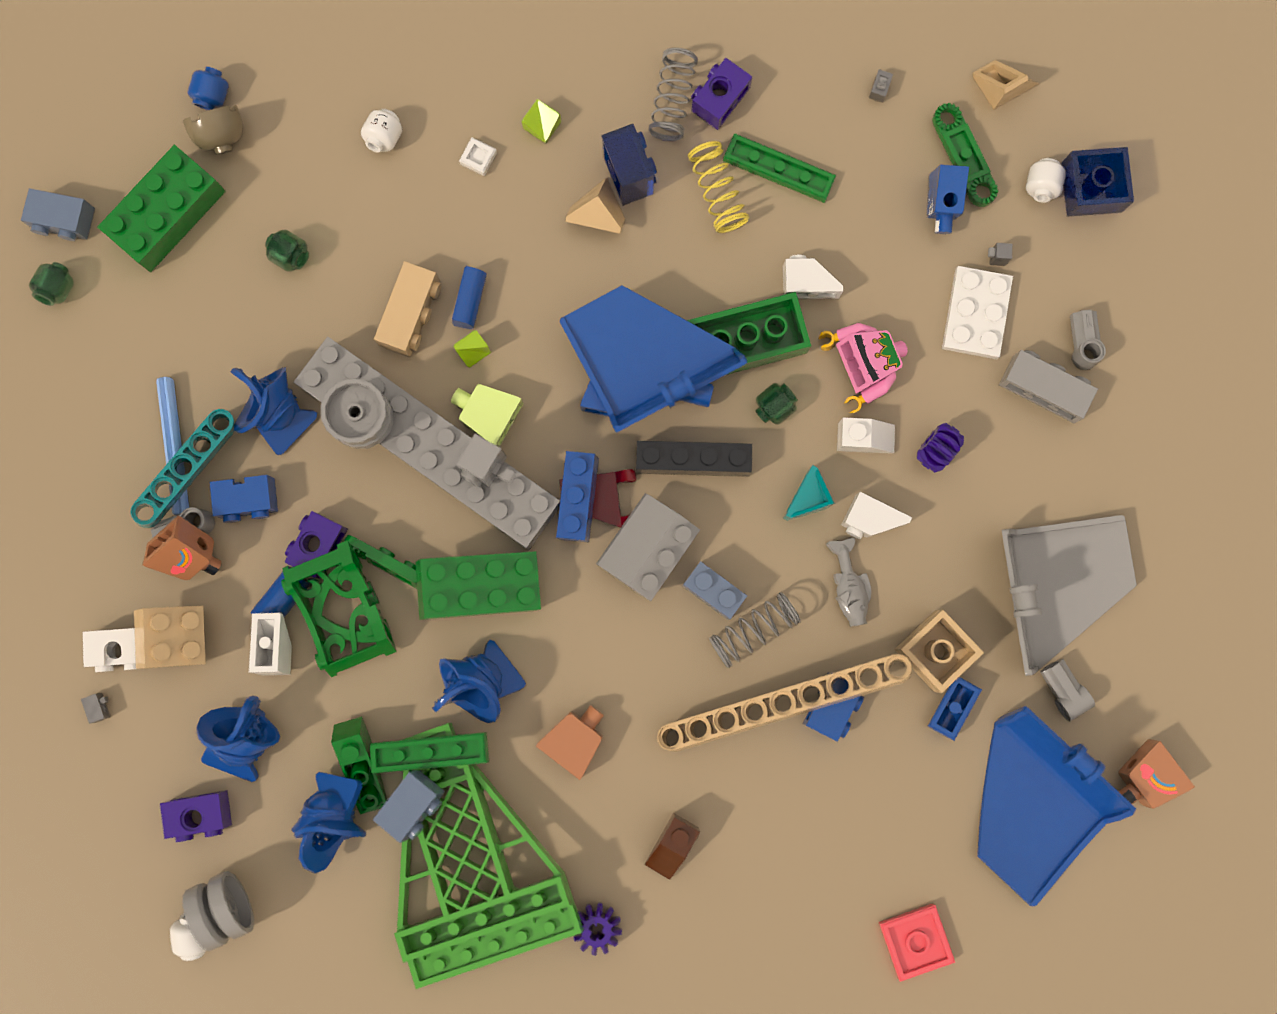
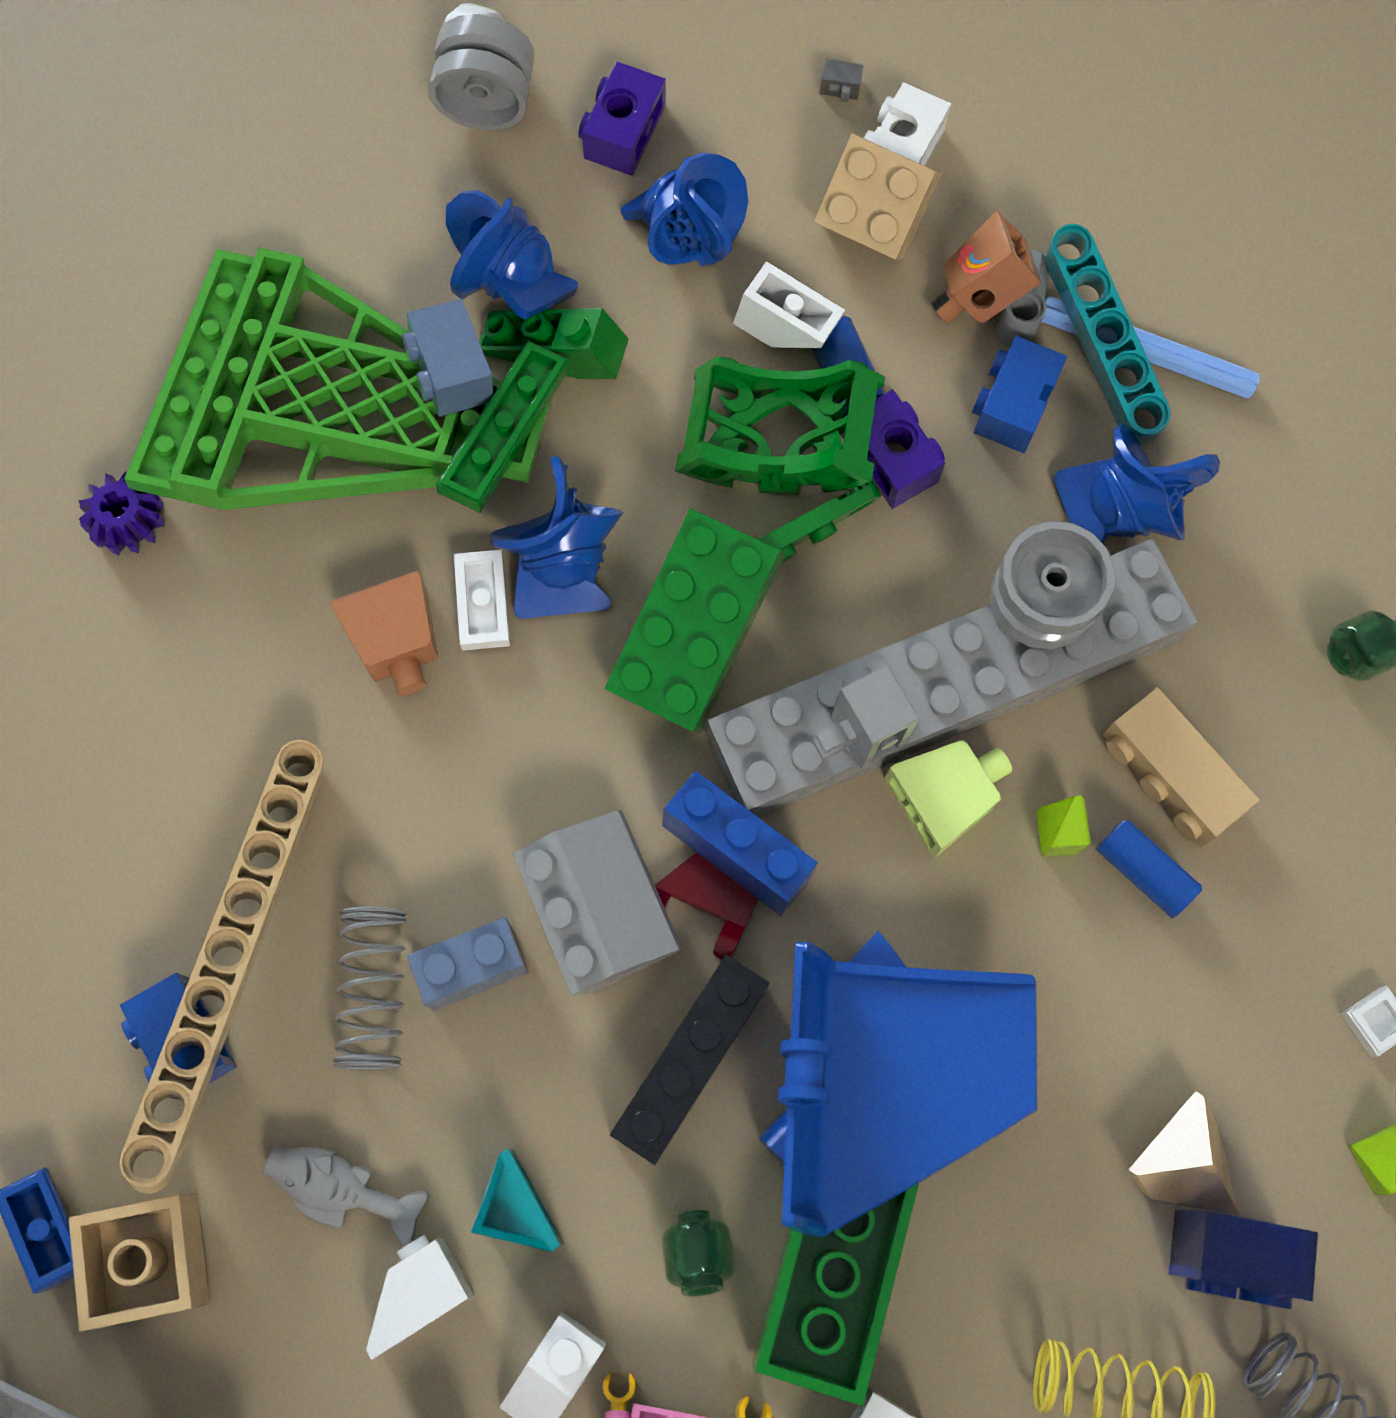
camera: 120 degrees right, 10 degrees down
(528, 706) = (481, 600): none -> white plate
(672, 846) = (155, 683): reddish brown slope -> none

